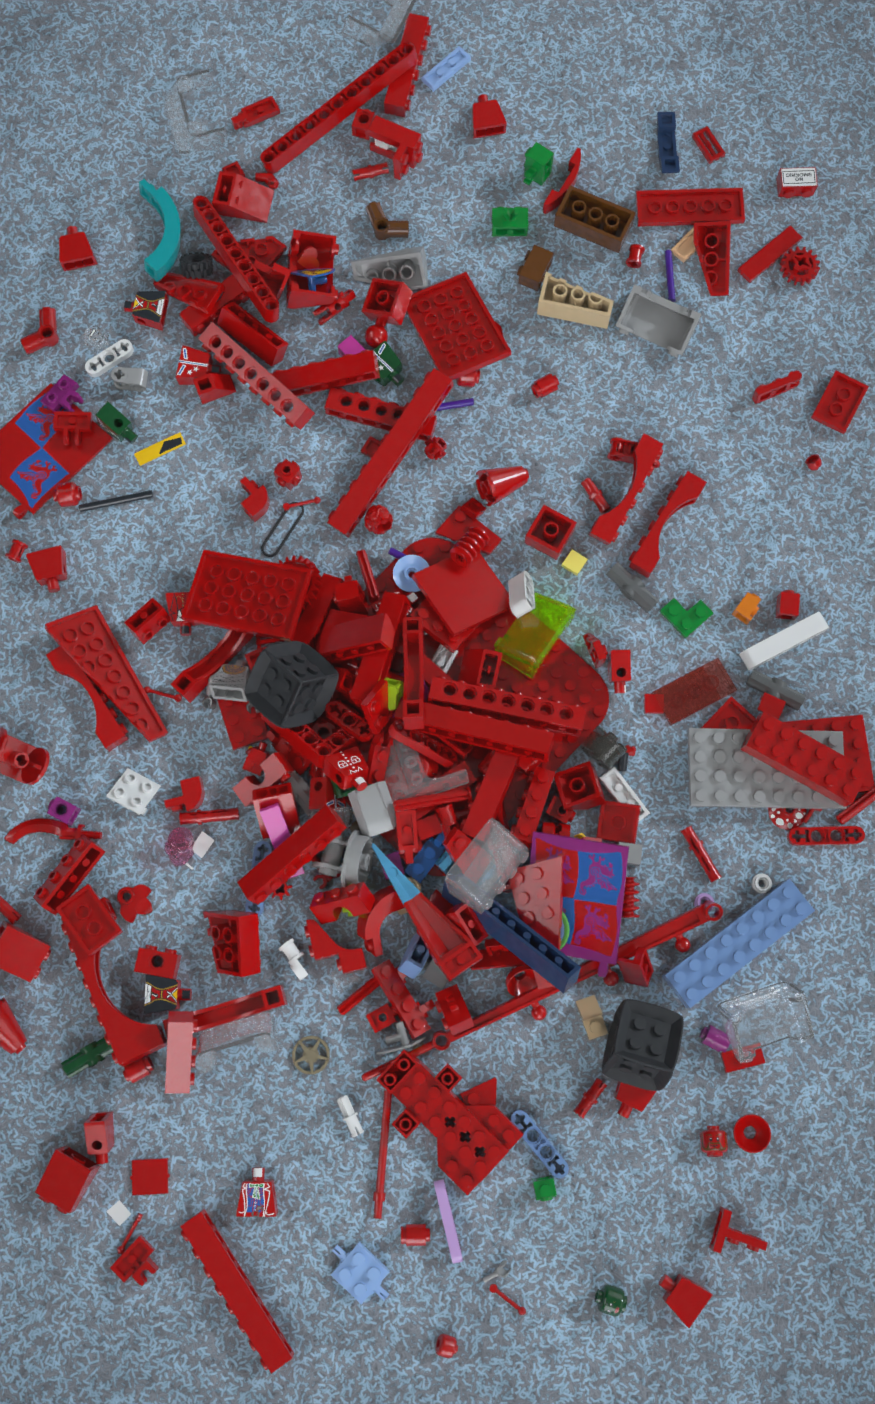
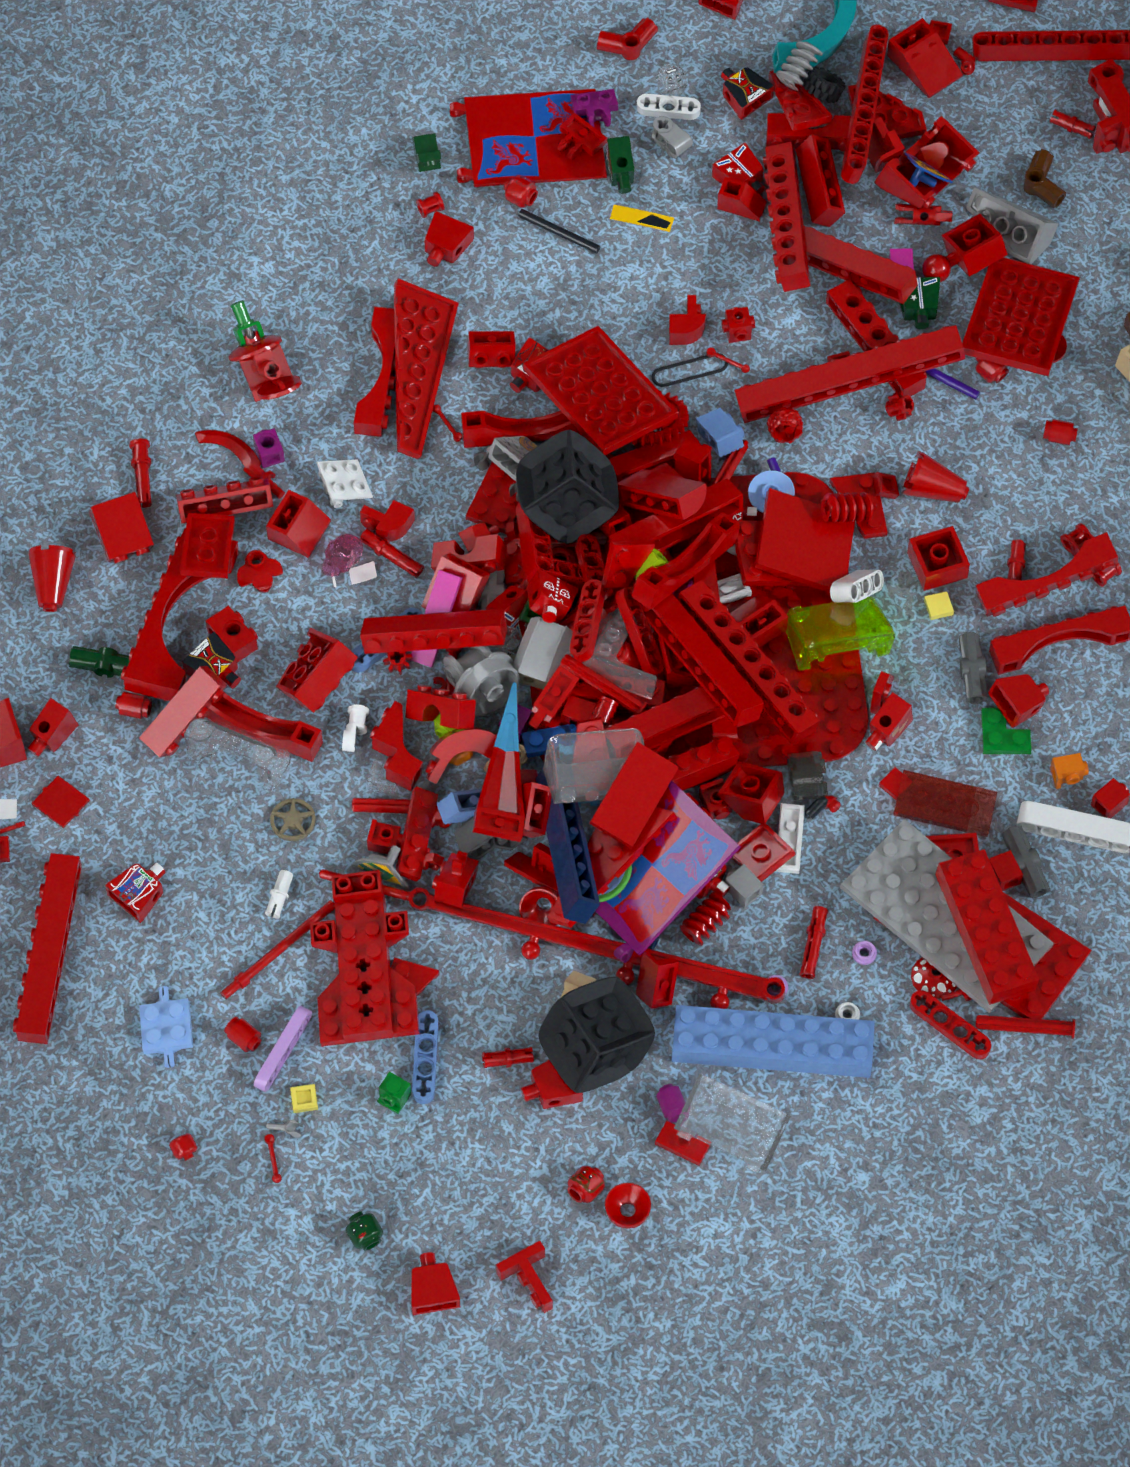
camera: 40 degrees right, 15 degrees down
(132, 849) = (297, 524): none -> red slope
(171, 264) = (797, 64): none -> light grey piece
(343, 558) = (720, 432): none -> medium blue brick
(390, 764) = (584, 620): none -> red beam
(490, 1240) = (304, 1098): none -> light yellow tile
(528, 867) = (634, 795): none -> red tile
(679, 585) = (1018, 697): none -> red torso
(741, 833) = (864, 946): none -> lavender plate

